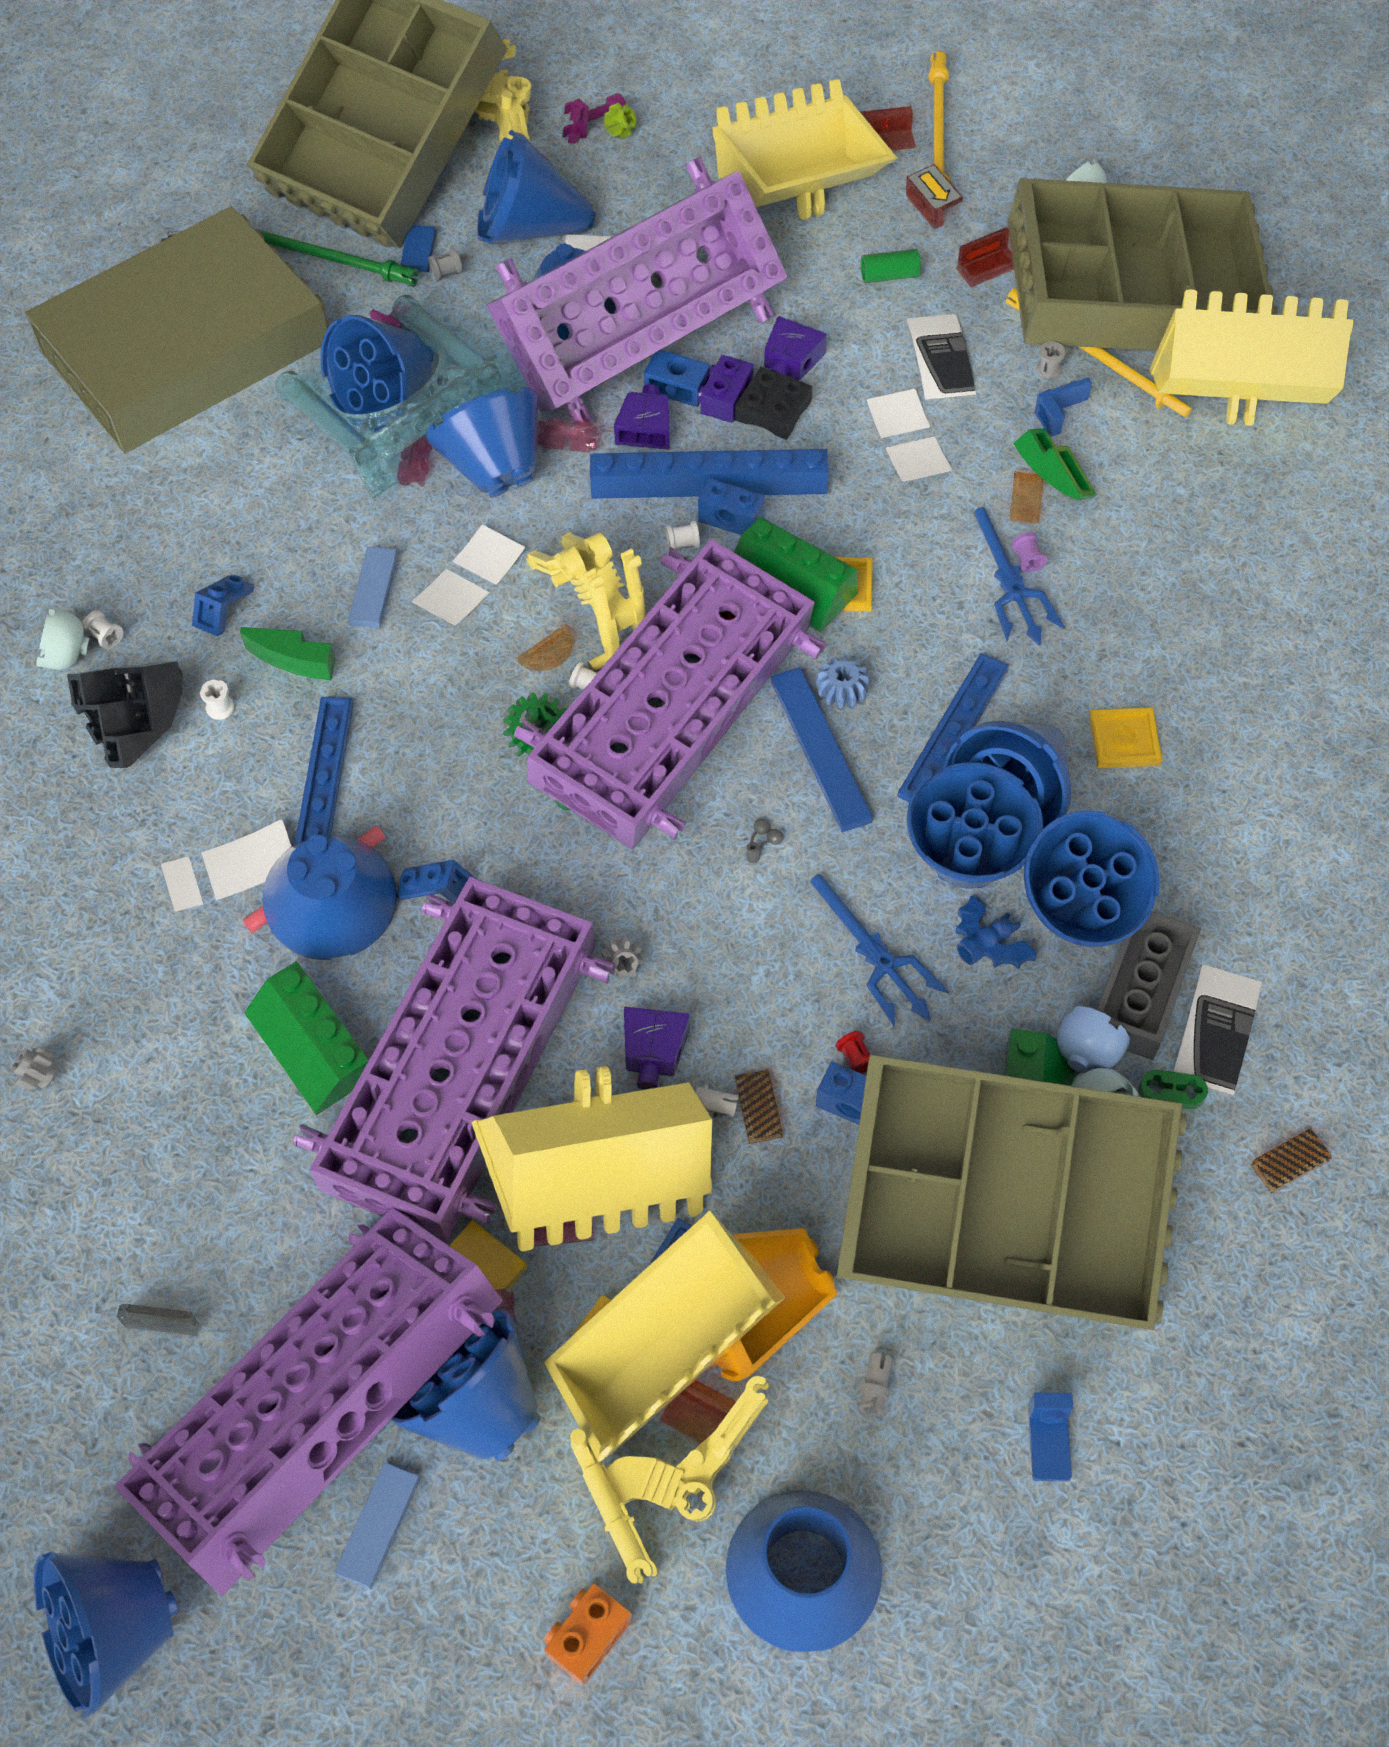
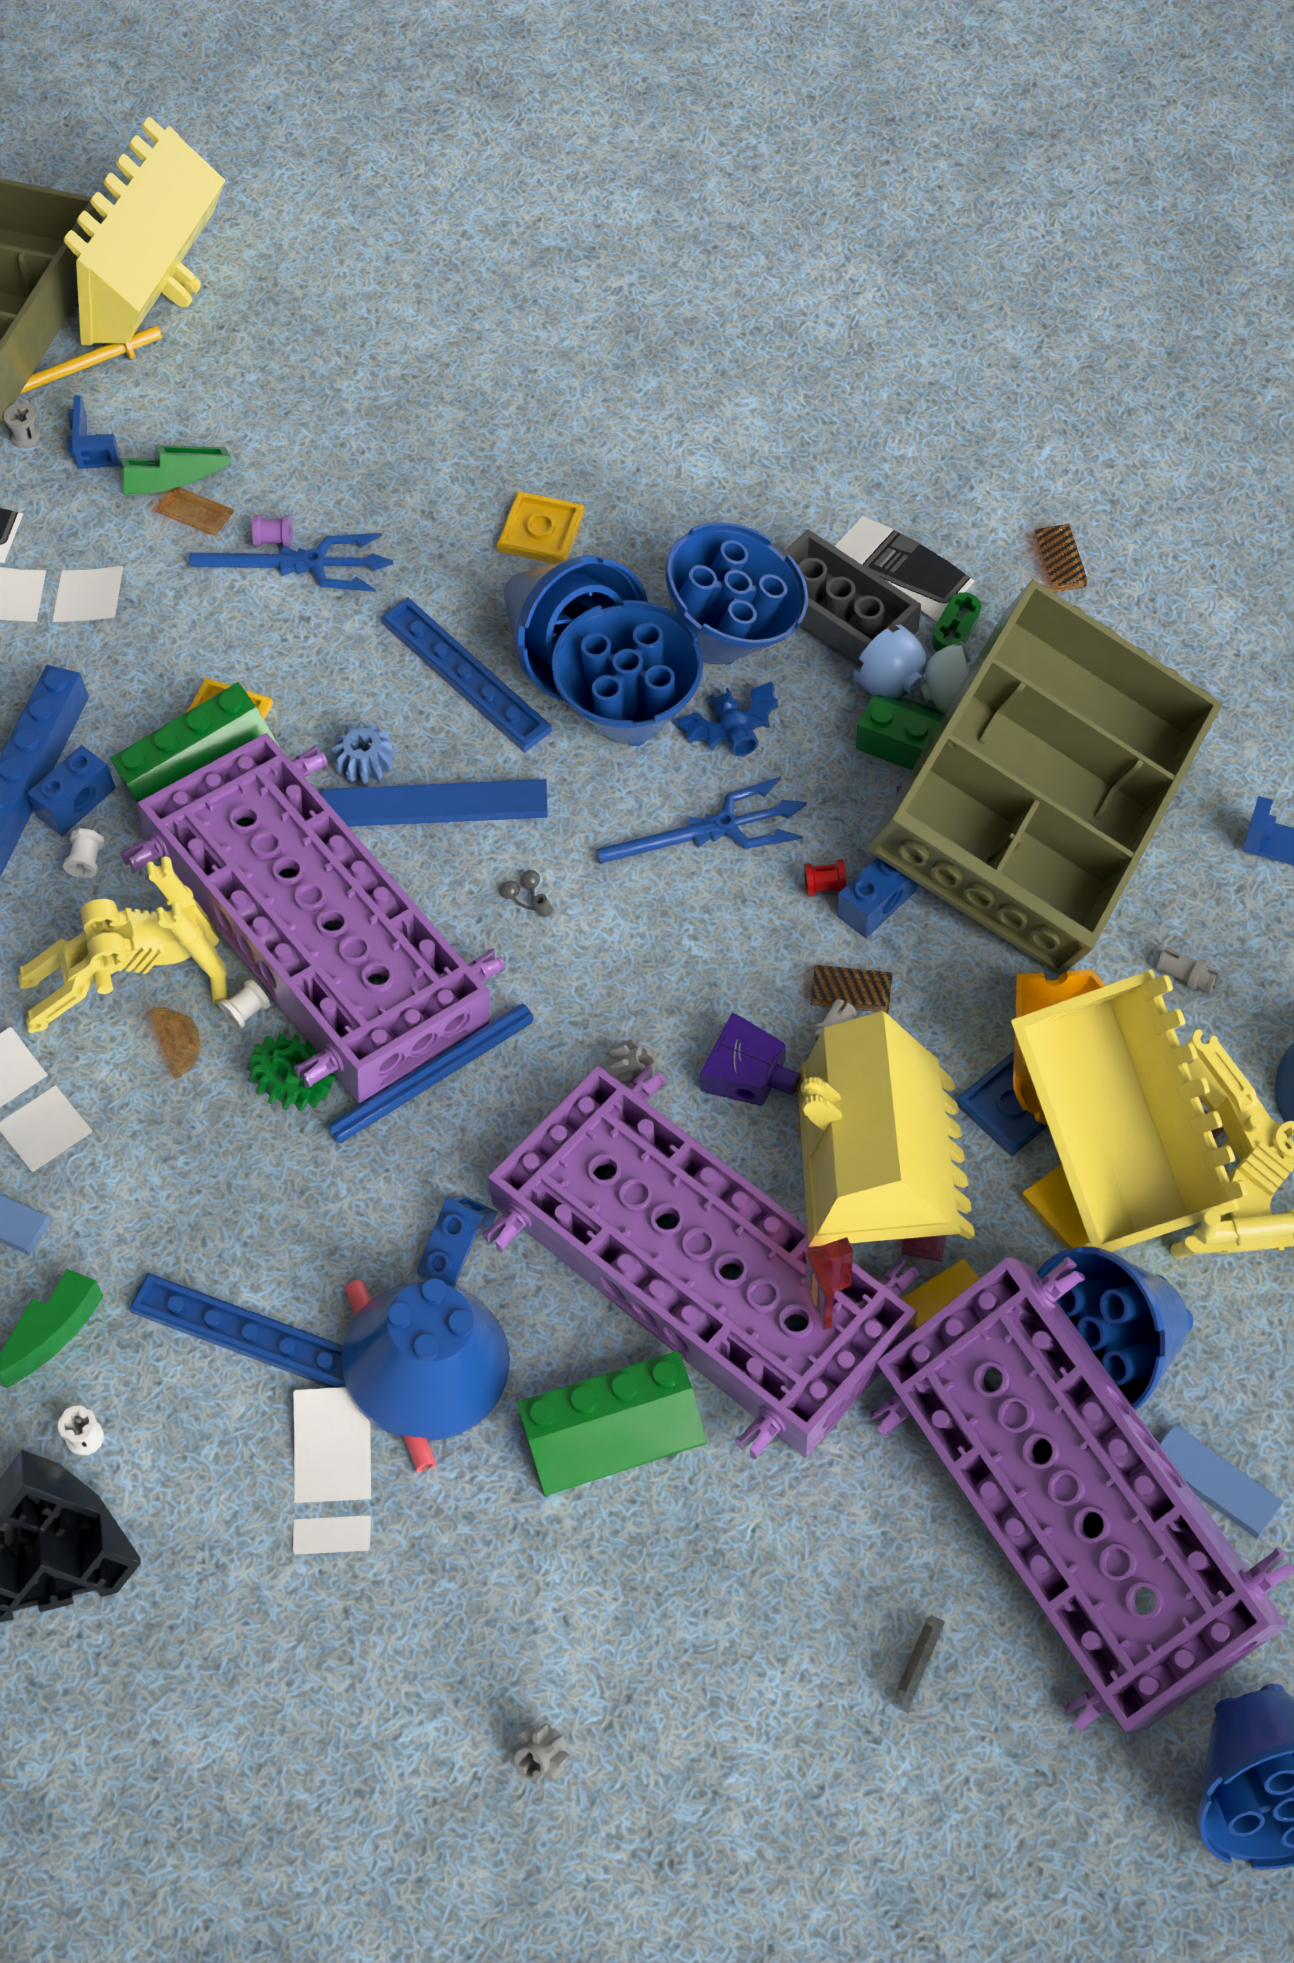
camera: 70 degrees left, 0 degrees up
(427, 1129) = (826, 1272): none -> clear red panel
(575, 824) = (430, 1073): none -> blue axle

